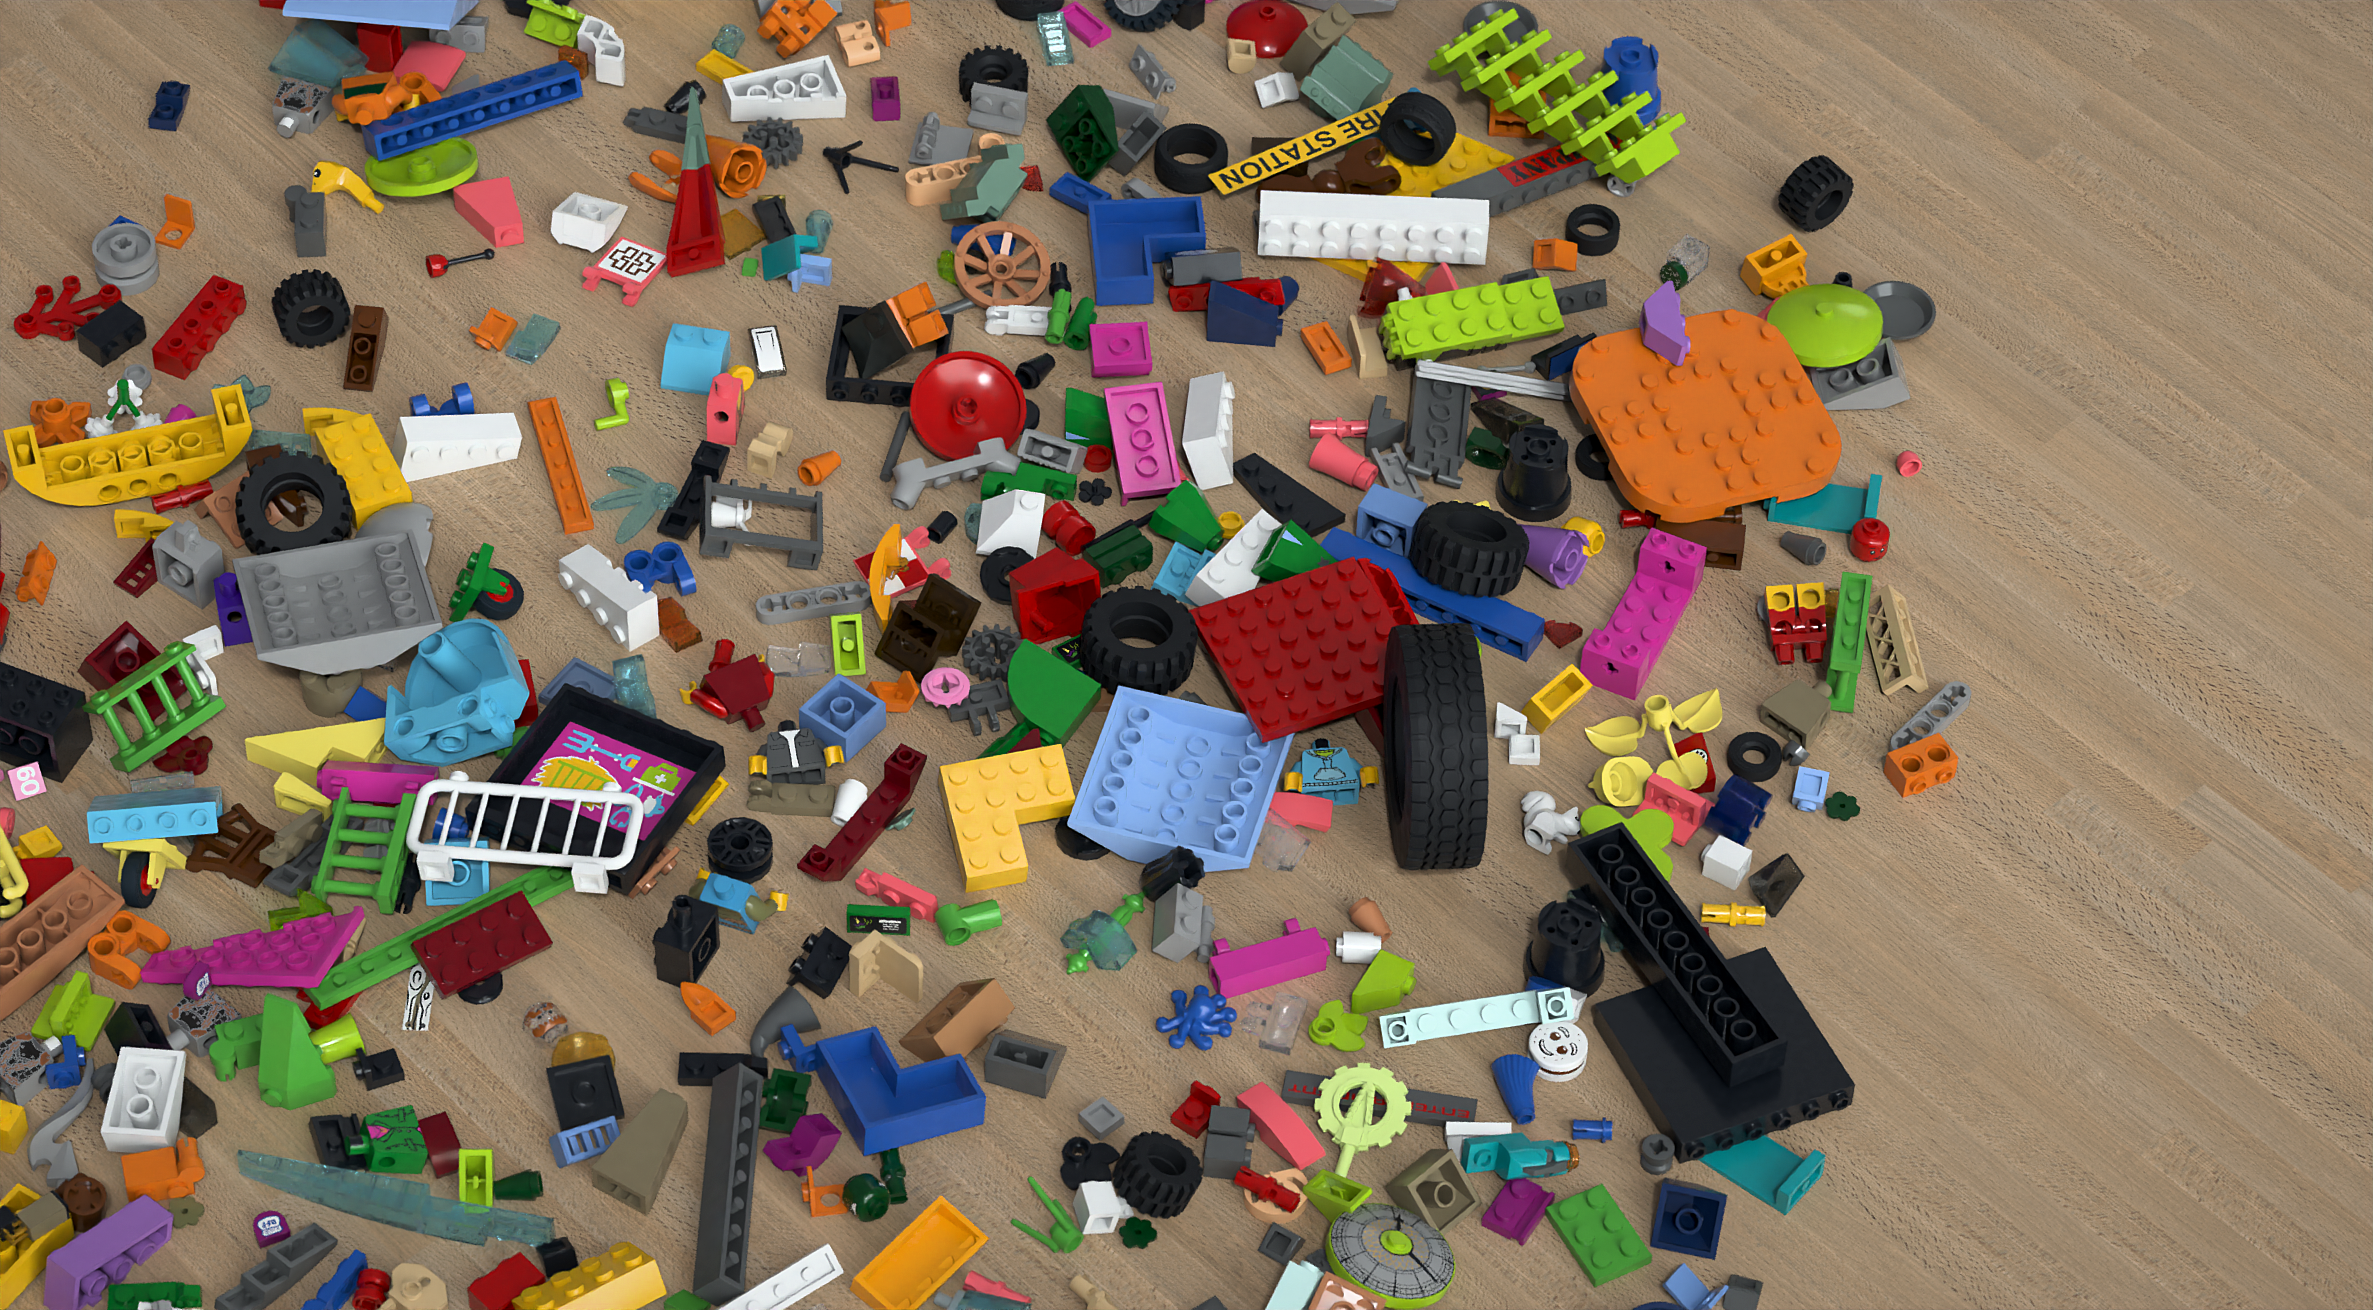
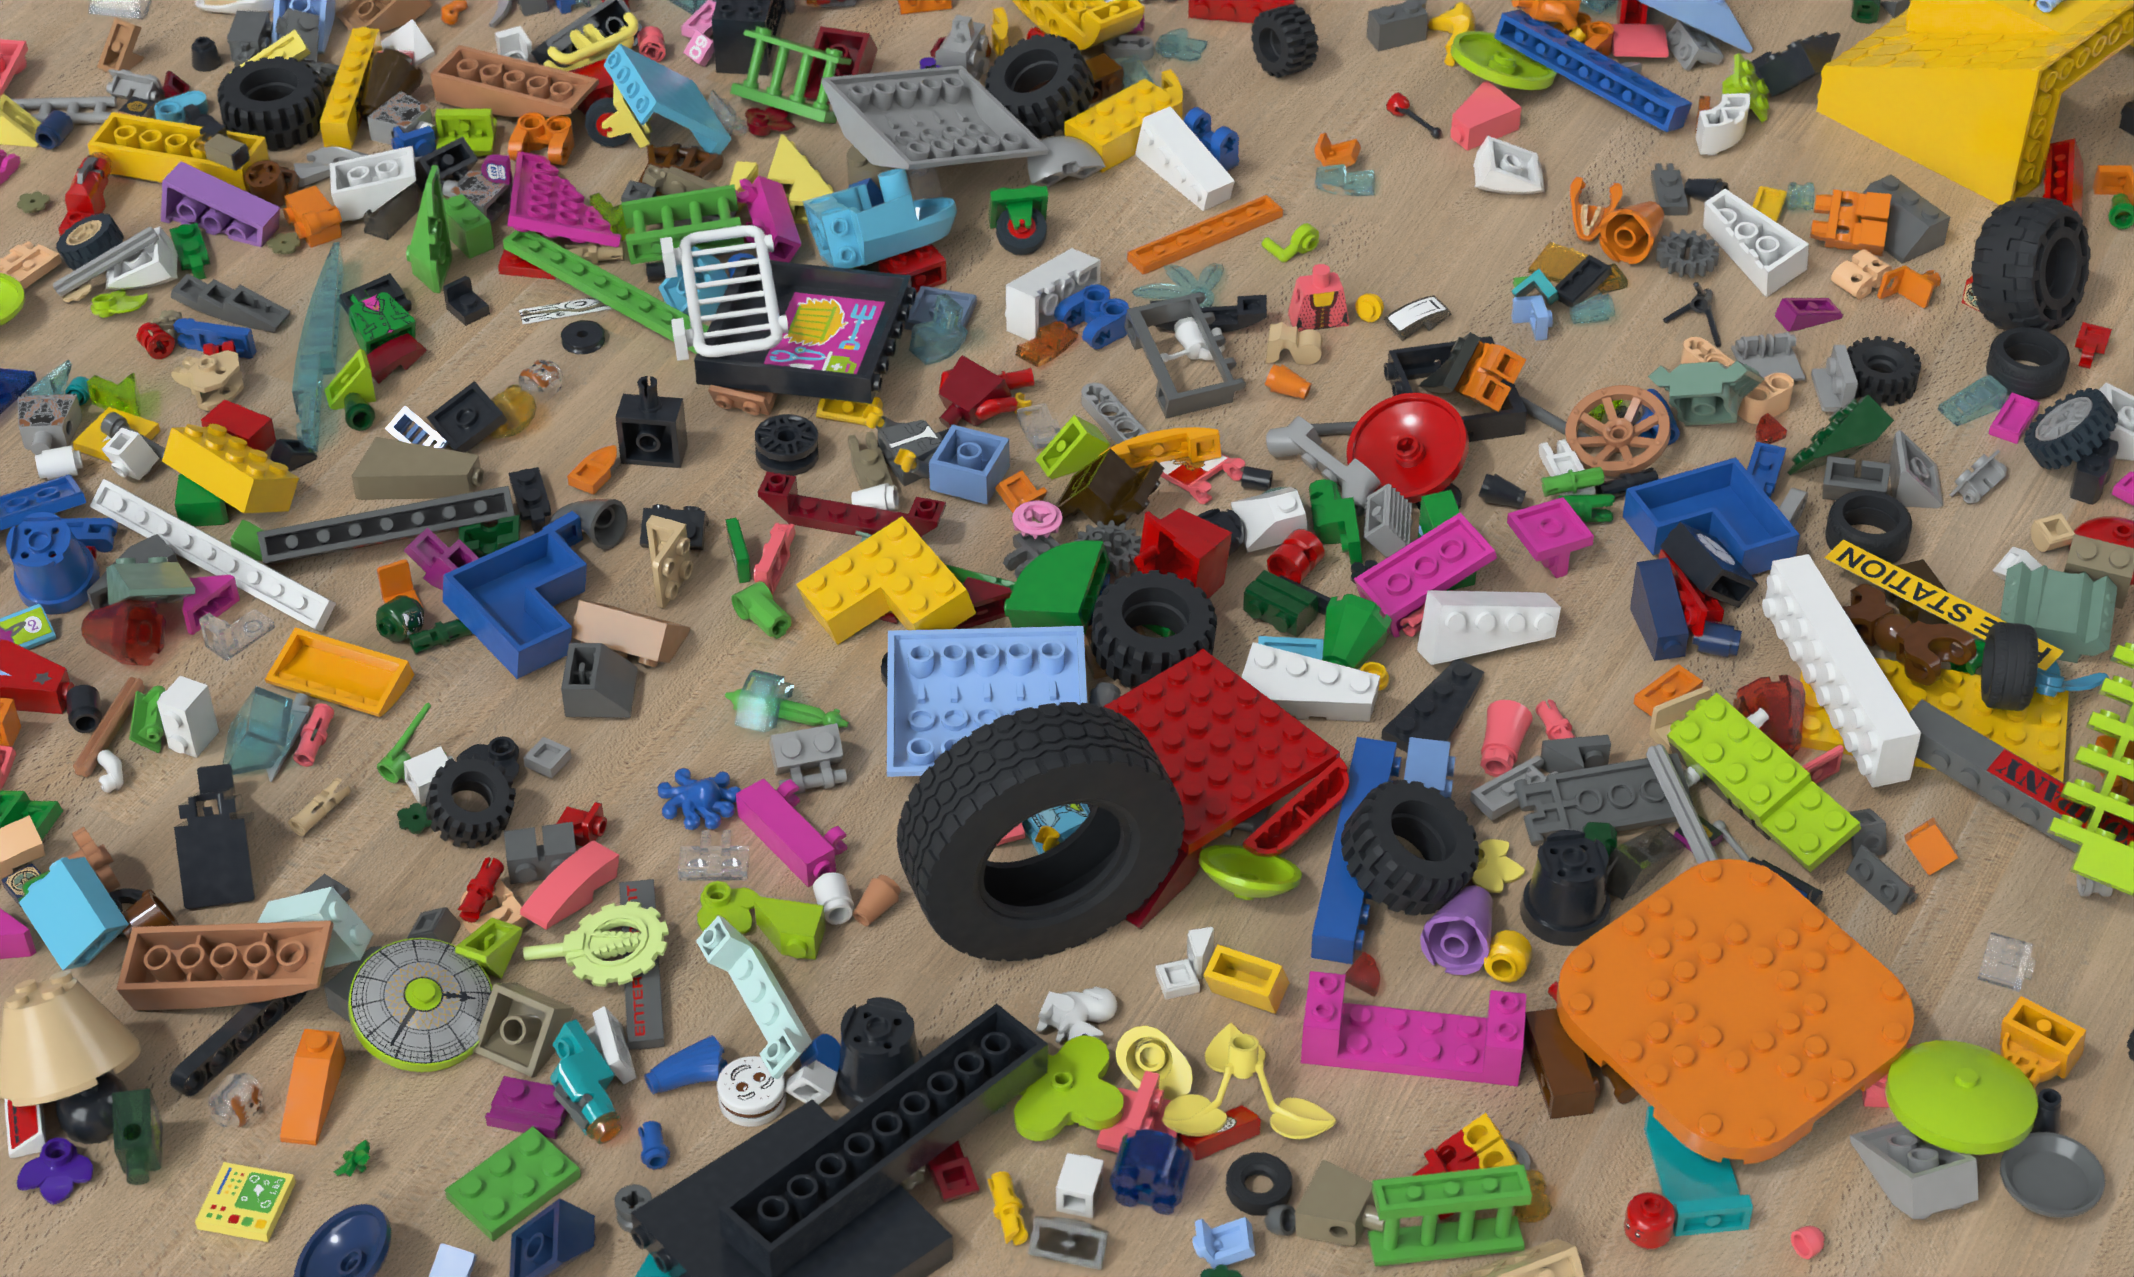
camera: 75 degrees right, 5 degrees down
(270, 1228) = (279, 290): magenta tile -> none
(338, 1039) = (486, 272): lime plant -> none
(365, 347) = (1276, 90): reddish brown slope -> none
(481, 944) = (609, 316): dark red plate -> none
(627, 265) = (1468, 211): flag -> none
(694, 358) = (1375, 270): medium azure slope -> none
(696, 227) = (1535, 232): red plate -> none
(736, 901) = (714, 447): torso -> none
(1176, 867) = (873, 728): black piece -> none
(1290, 553) = (1327, 712): green slope -> none
(1595, 215) = (1999, 852): black tyre -> none
(1664, 326) = (1823, 913): medium lavender slope -> none
(1674, 272) = (1971, 956): dark green tile -> none
(1807, 548) = (1608, 1166): dark grey cone -> none

